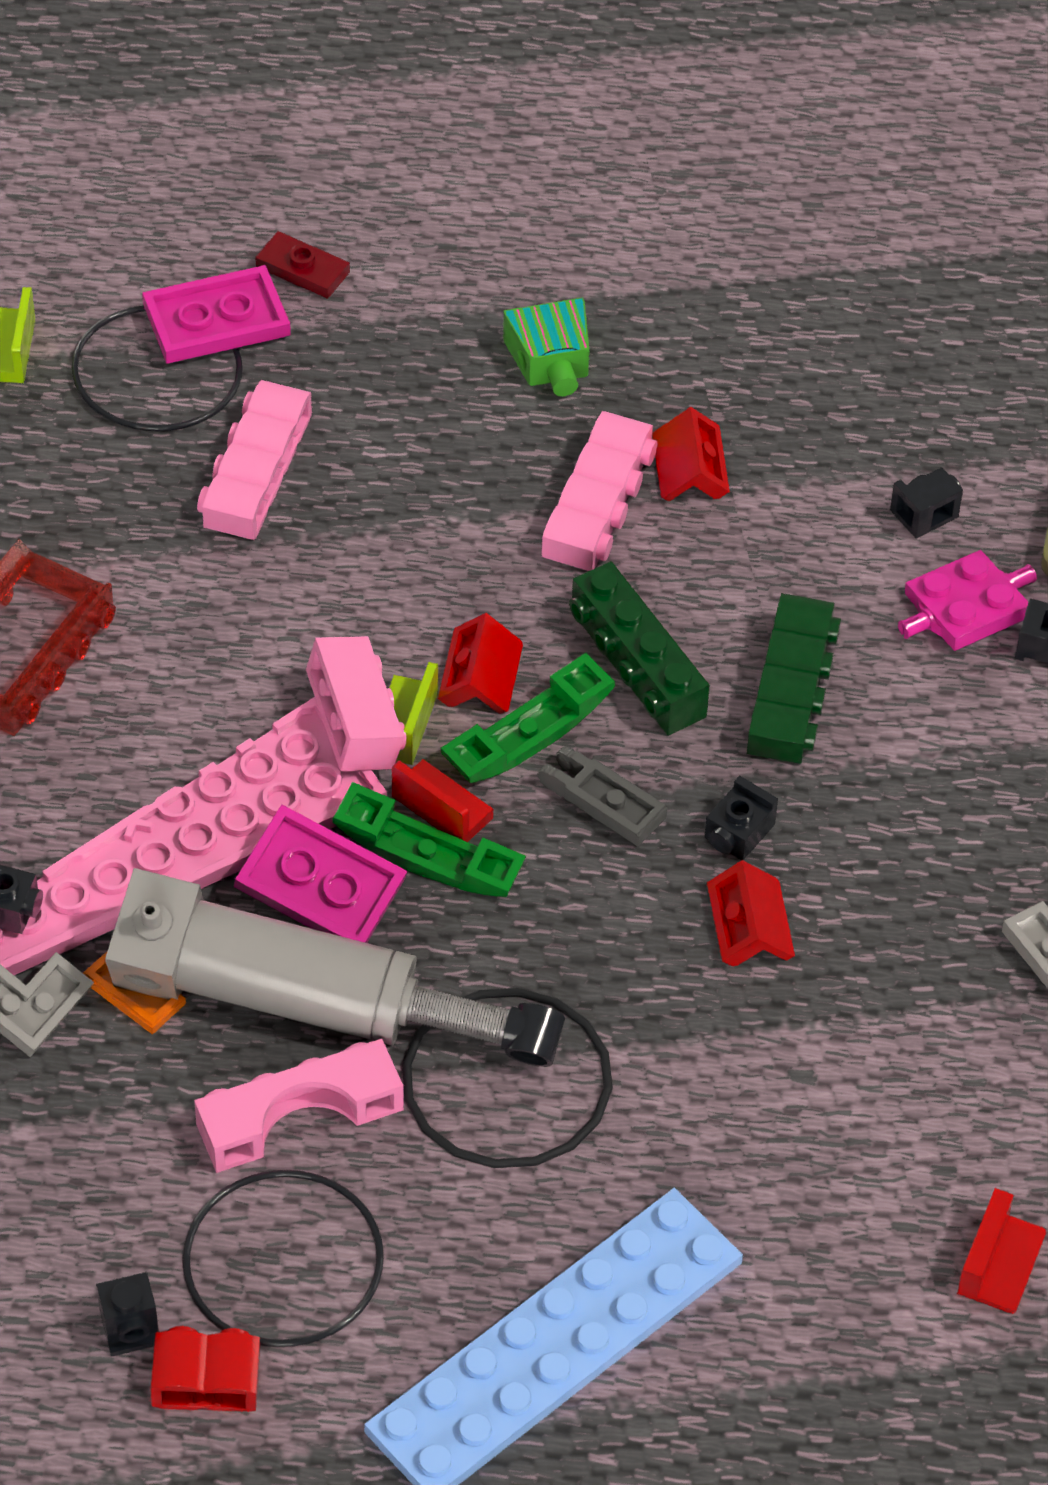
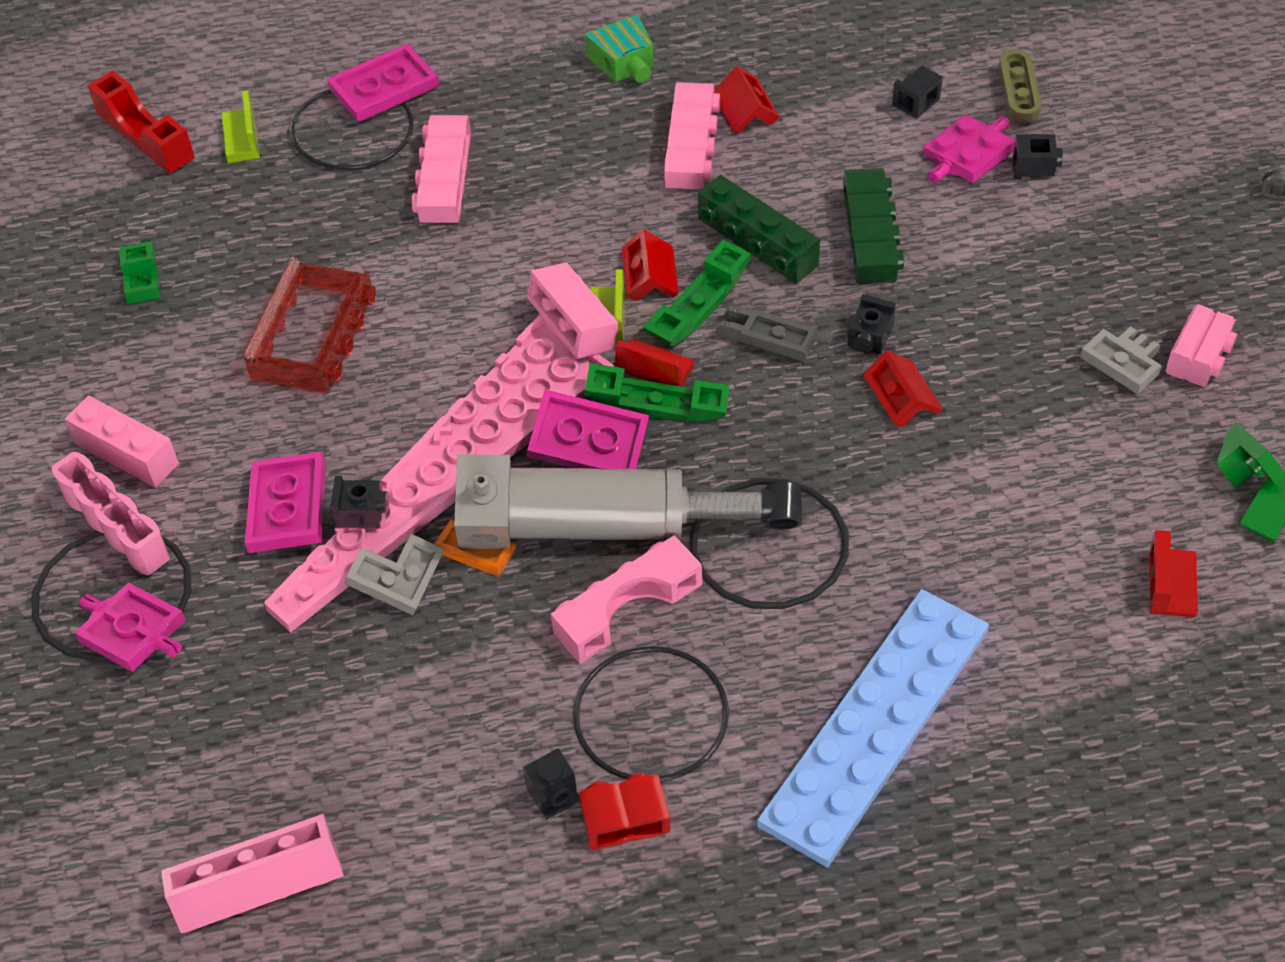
camera: 10 degrees left, 0 degrees up
(303, 264) = (433, 39): dark red plate -> none

